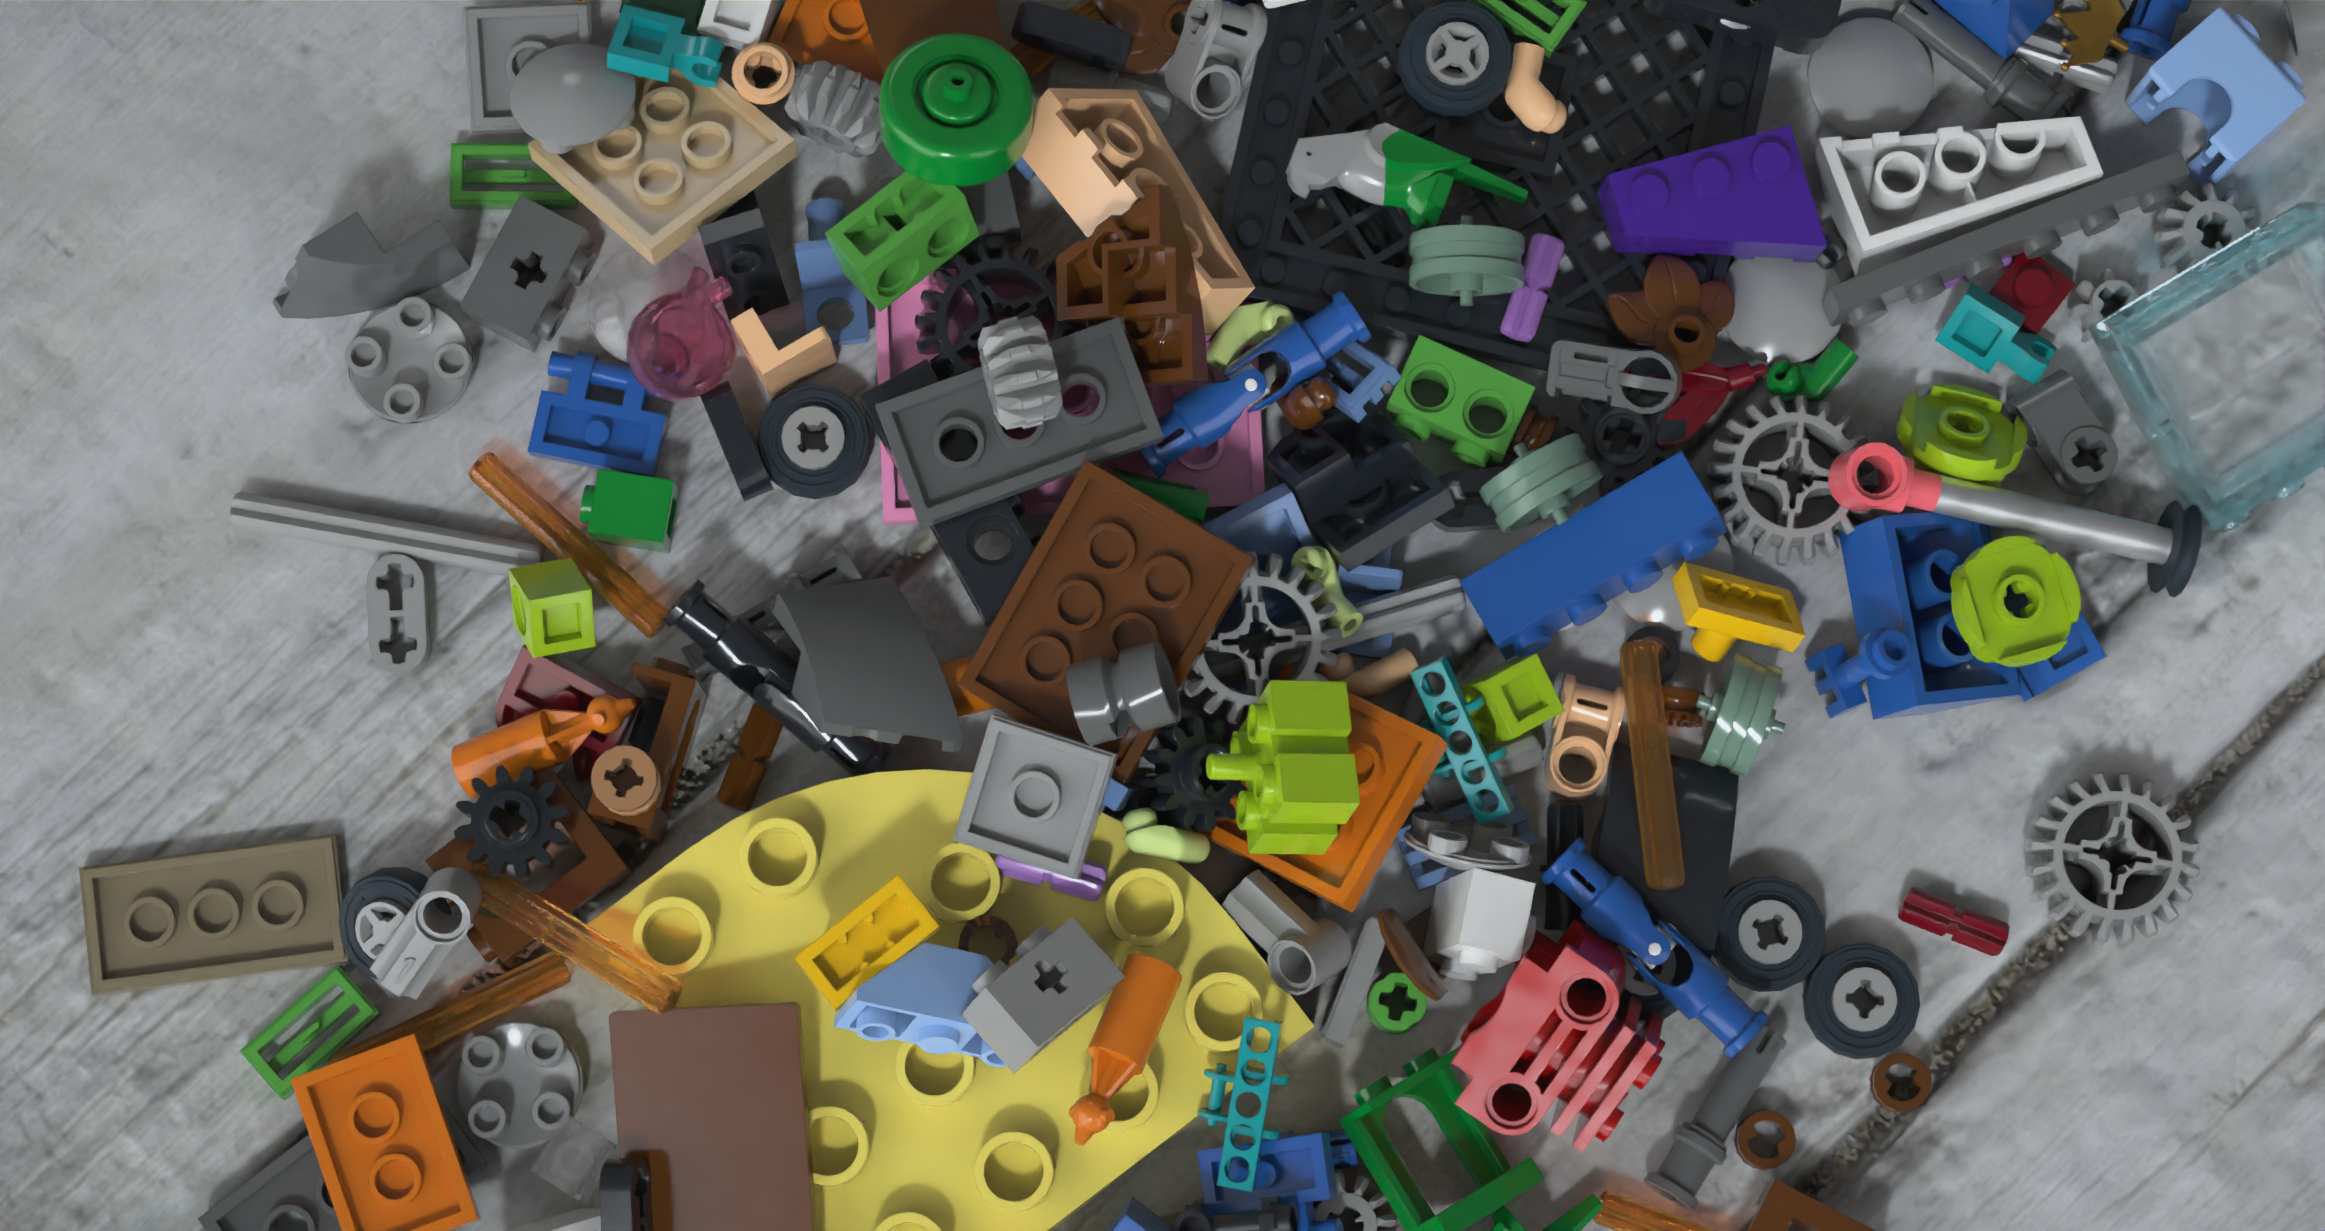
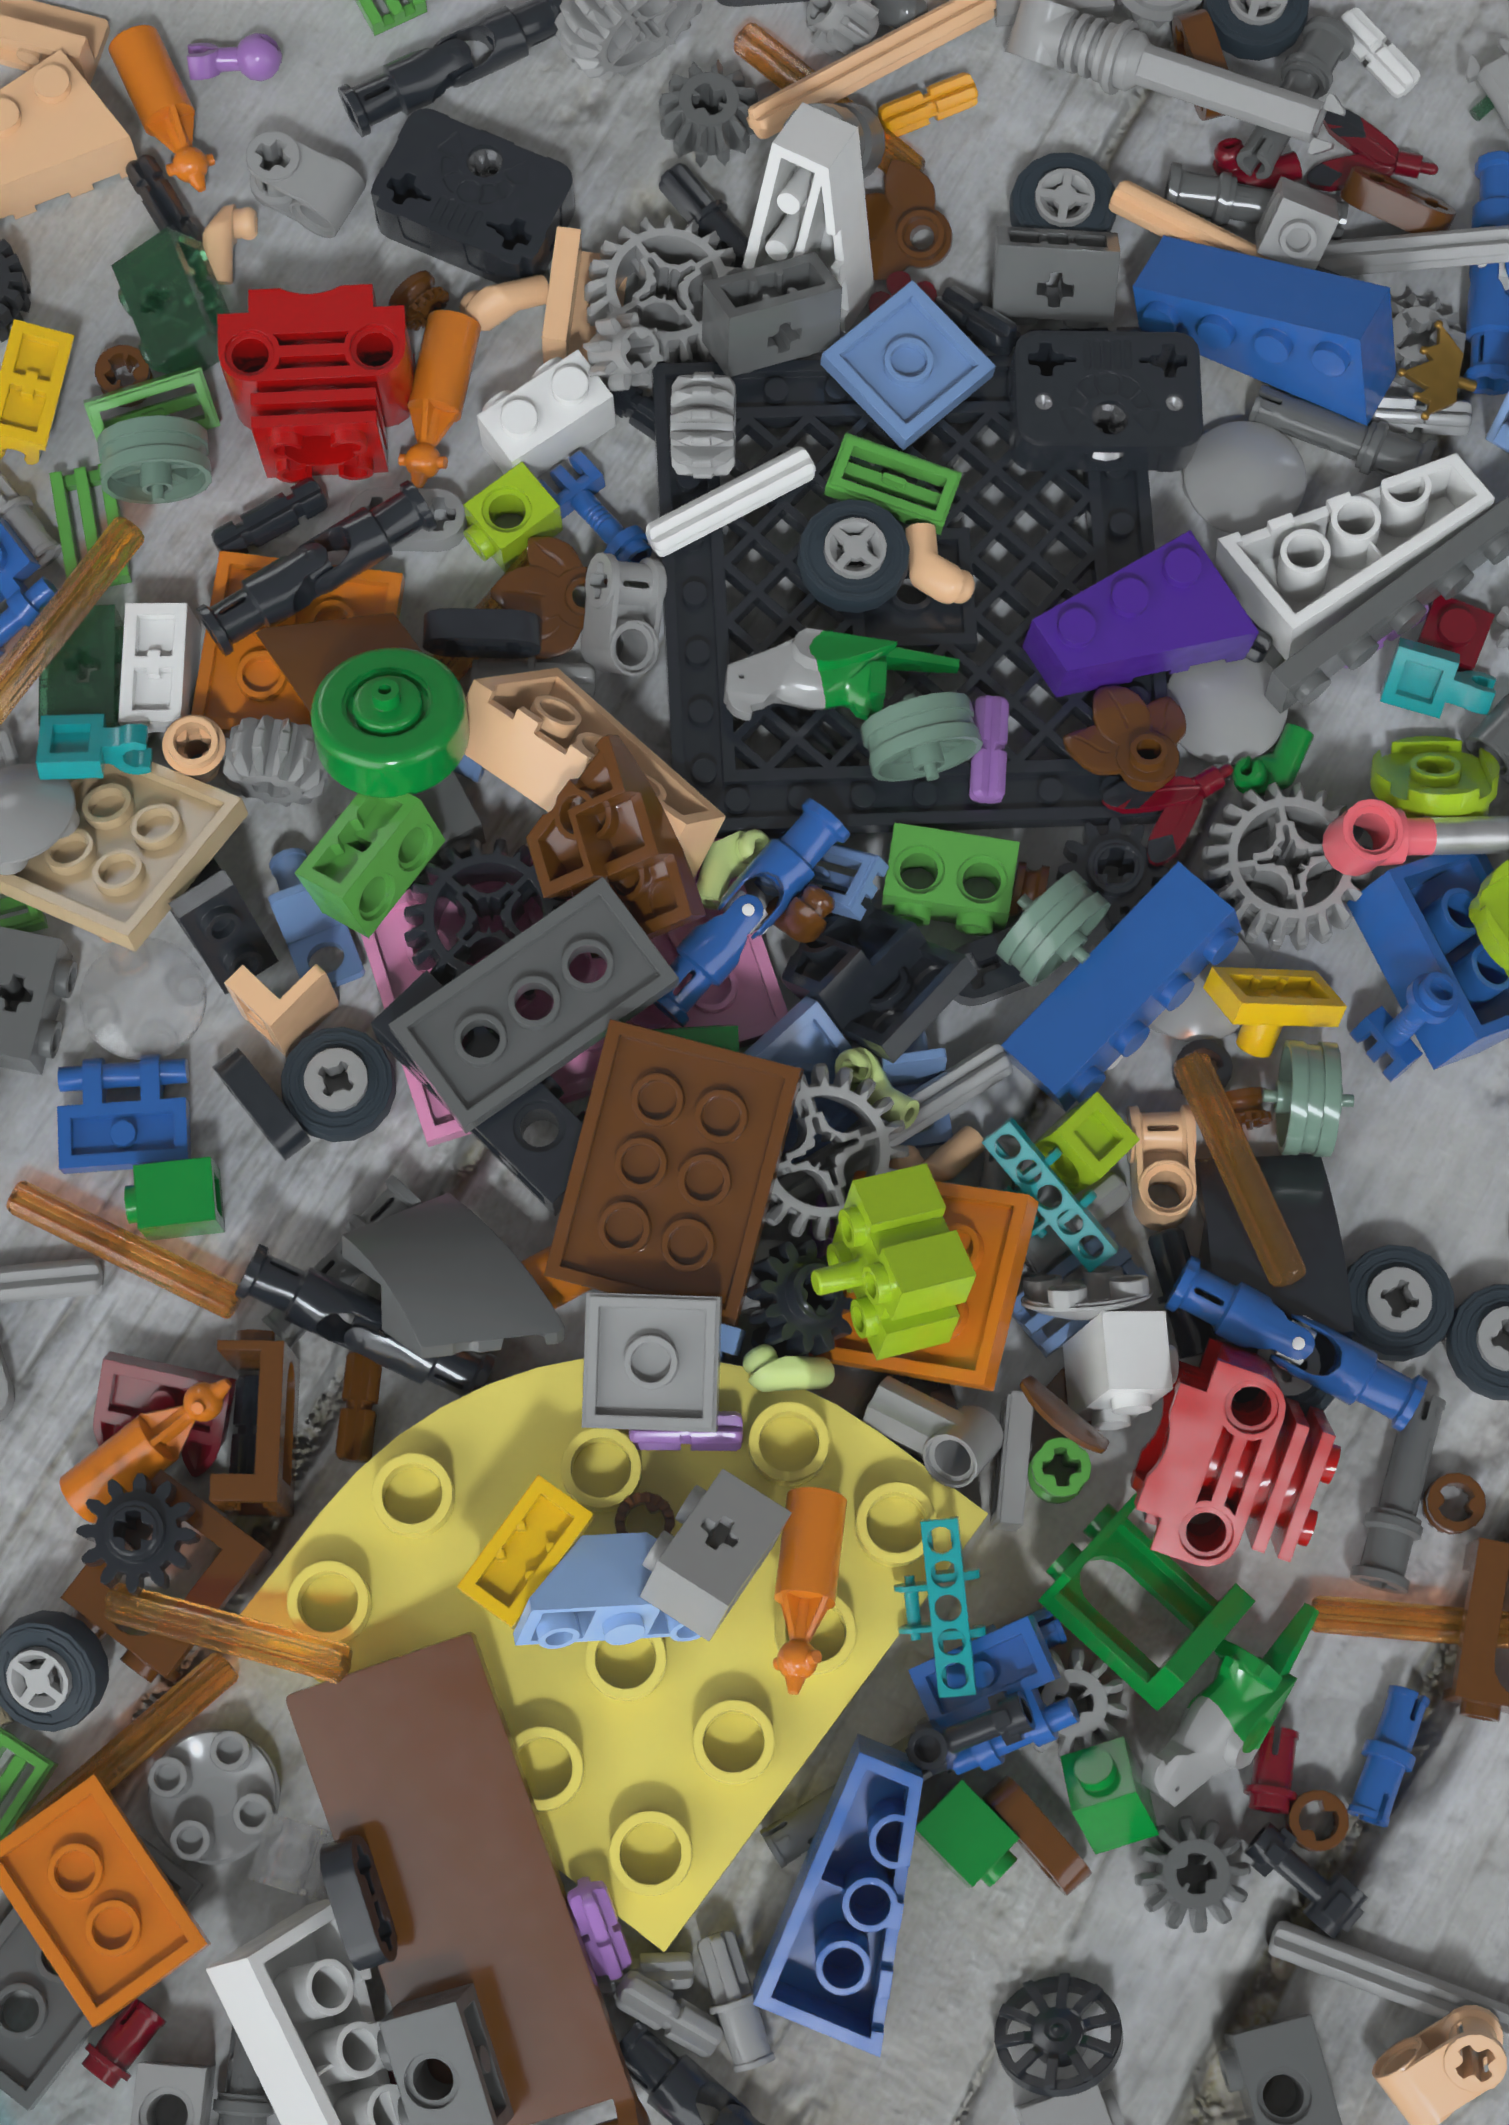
camera: 15 degrees left, 5 degrees down
(427, 934) = (81, 1669): light grey piece -> none
(552, 607) = (122, 1313): lime brick -> none
(636, 794) = (253, 1469): medium nougat wheel -> none
(682, 341) = (181, 1019): clear pink hat -> none
(1020, 372) = (522, 950): light grey gear -> none
(1123, 693) = (711, 1234): dark grey wheel -> none
(1602, 371) = (1080, 807): dark grey piece -> none

